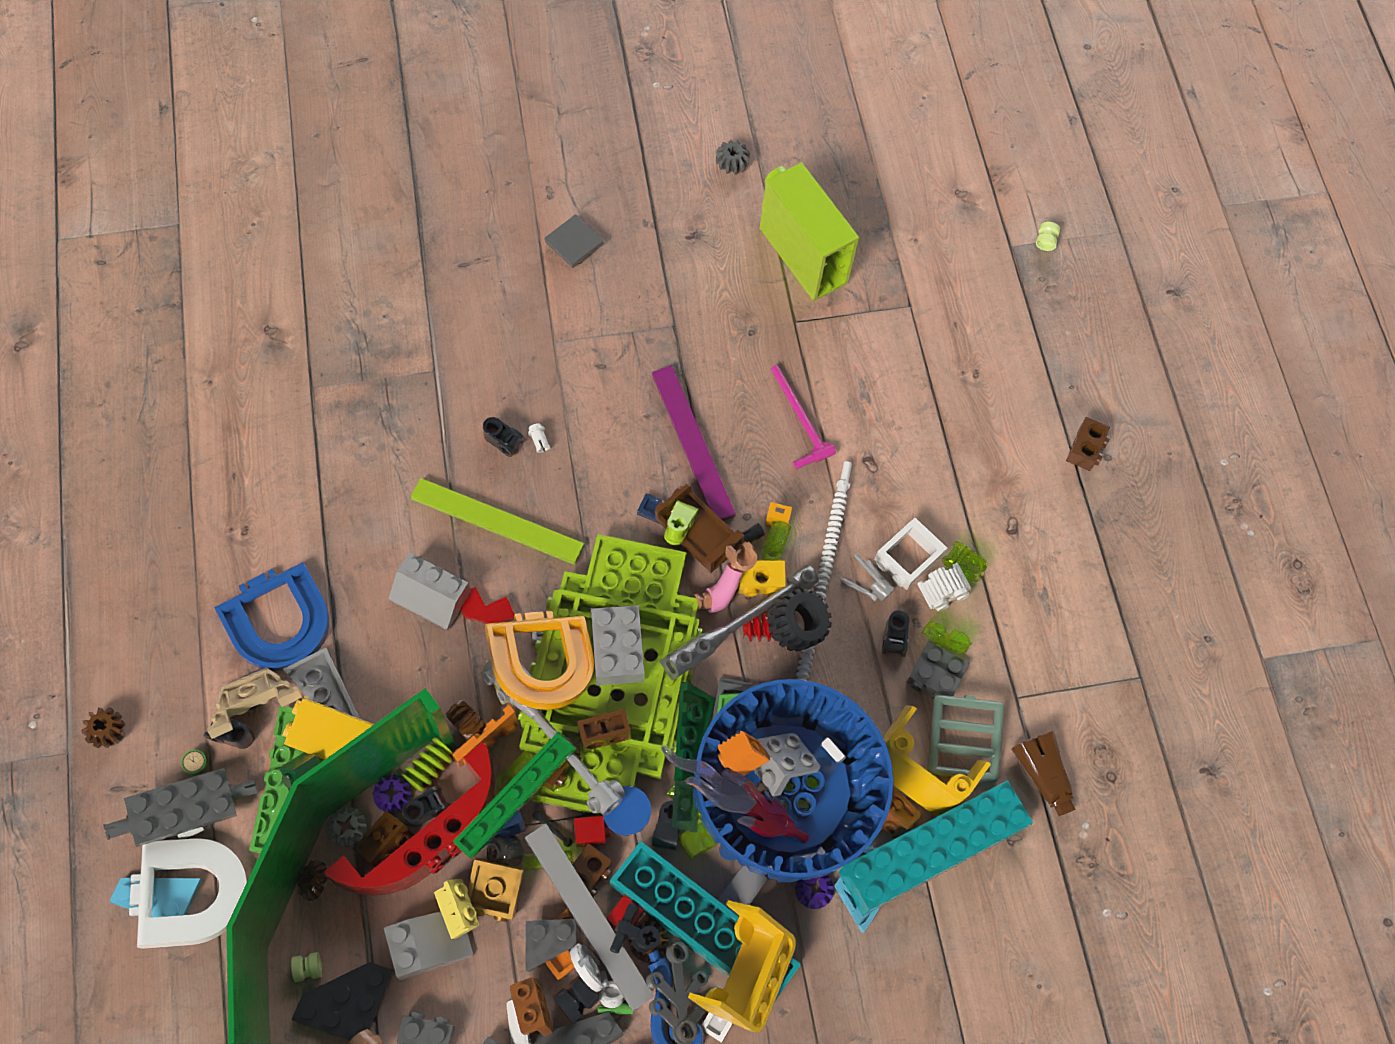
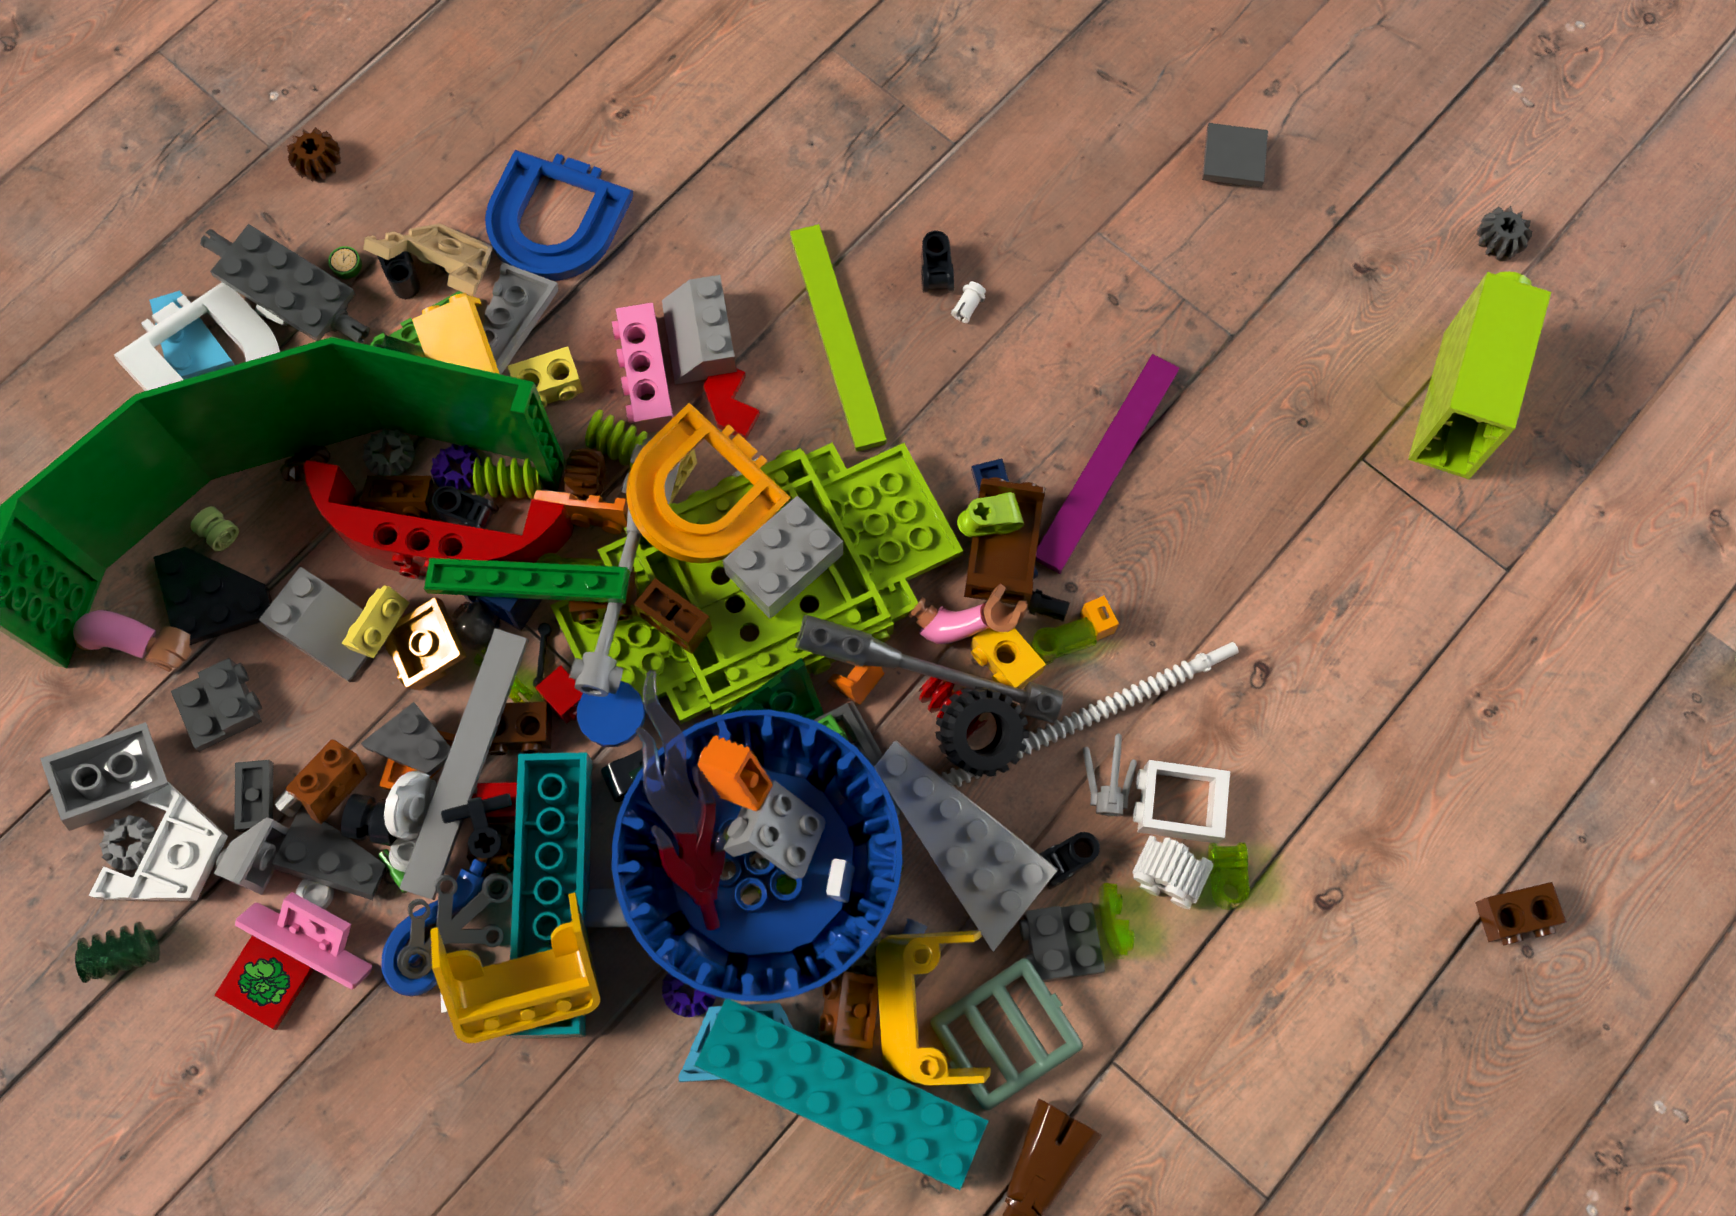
camera: 55 degrees right, 5 degrees up
(377, 698) = (544, 370): none -> light yellow brick
(397, 618) = (635, 323): none -> bright pink brick
(460, 686) = (611, 438): none -> lime piece
(714, 669) = (858, 682): none -> orange tile
(821, 450) = (1225, 606): dark pink bar -> none
(865, 676) = (978, 856): none -> white wing

